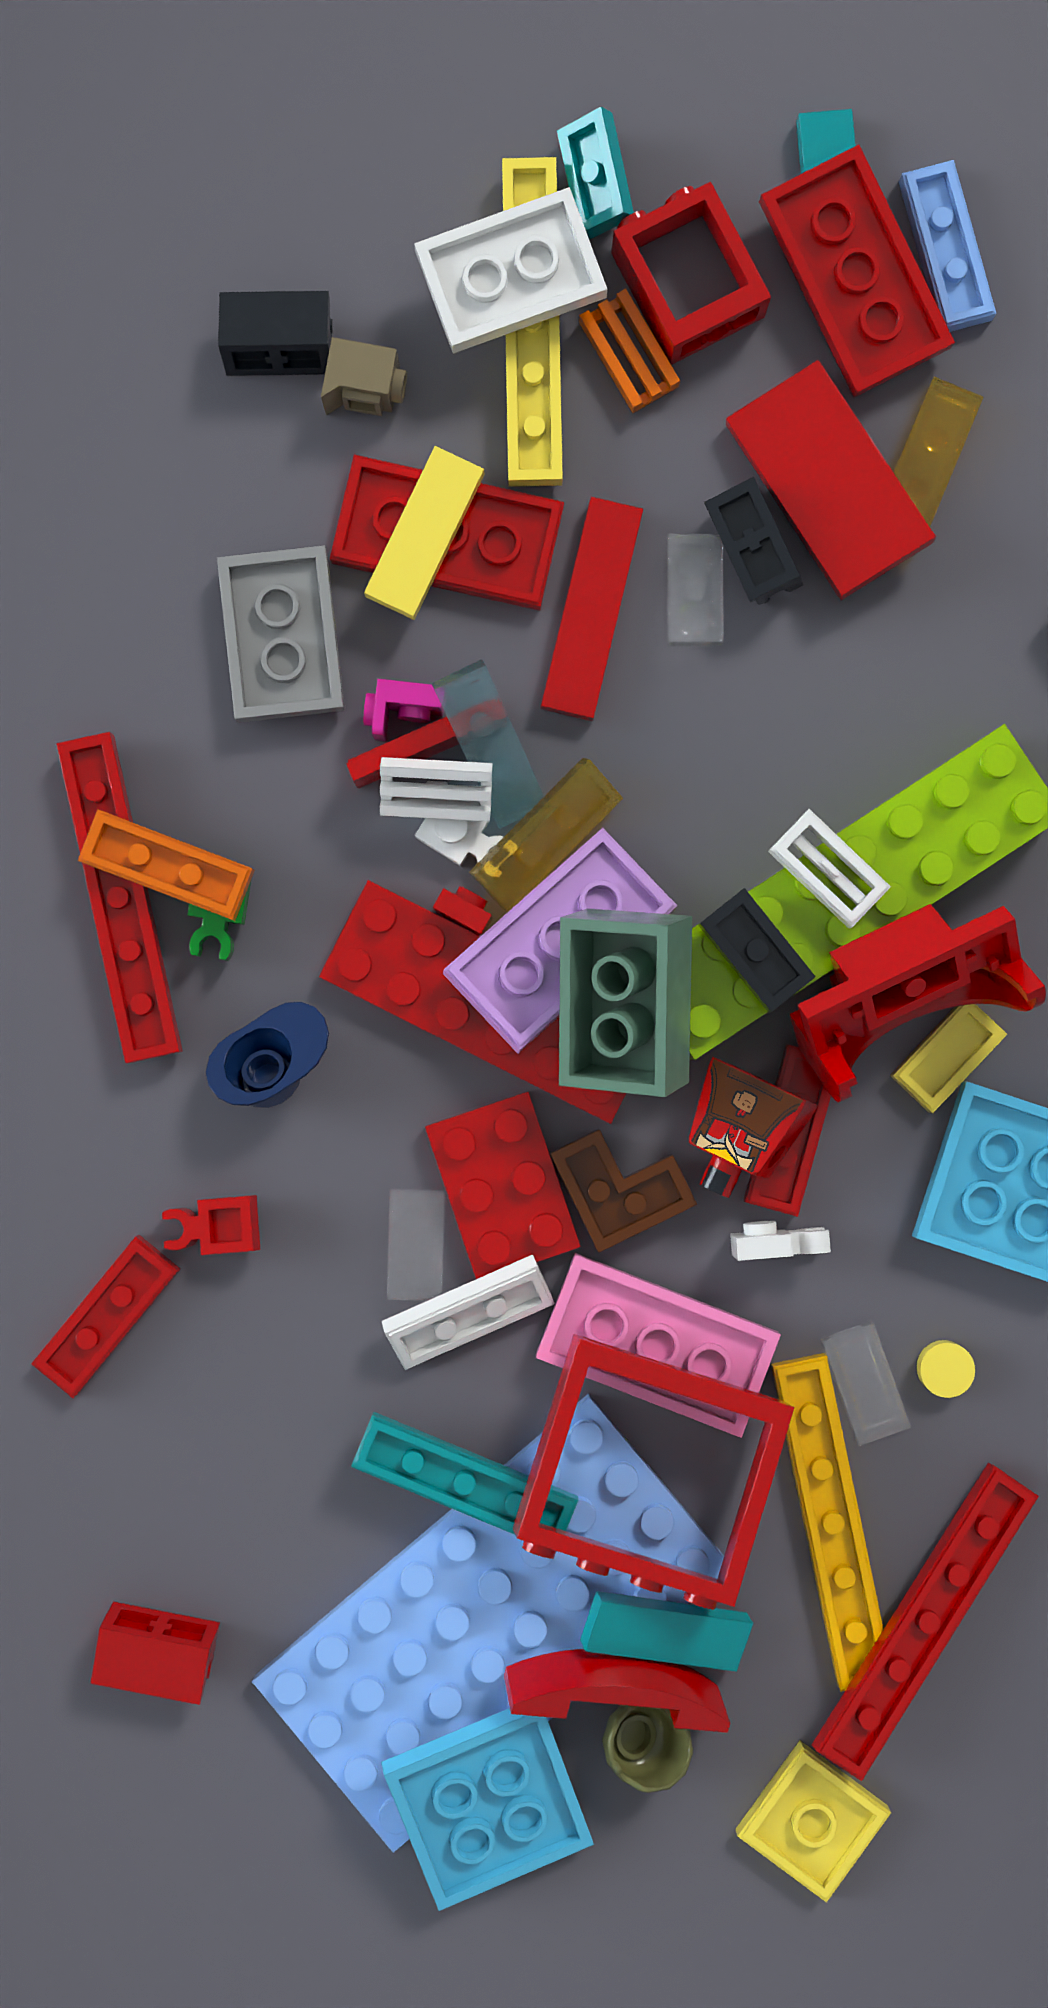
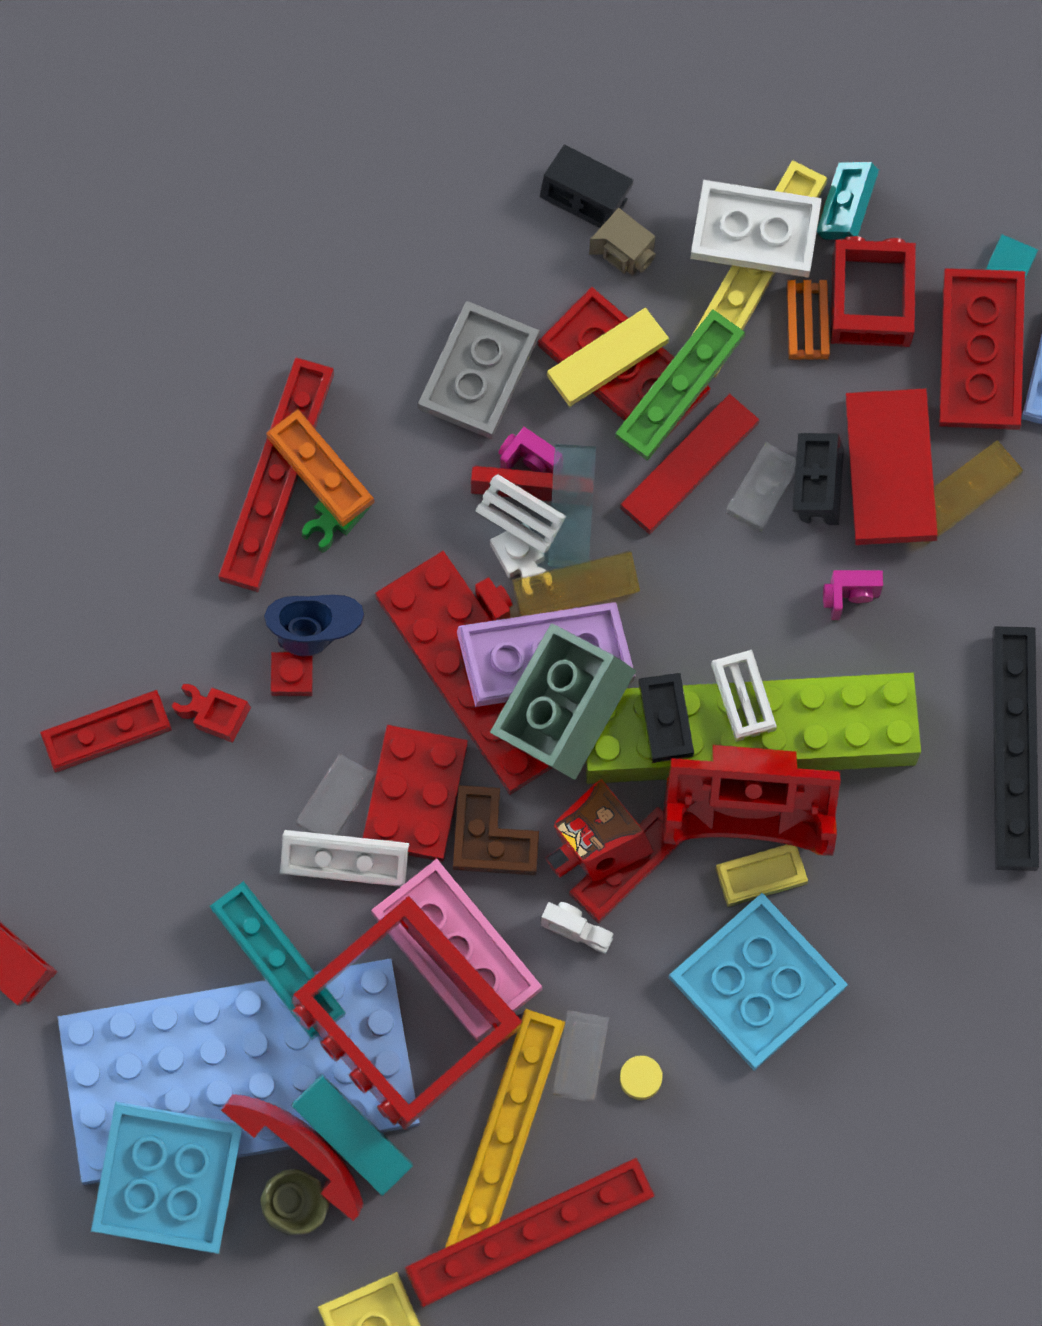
camera: 30 degrees right, 15 degrees down
(279, 1128) = (291, 674): none -> red plate
(531, 519) = (680, 384): none -> bright green plate
(871, 650) = (856, 585): none -> dark pink bracket

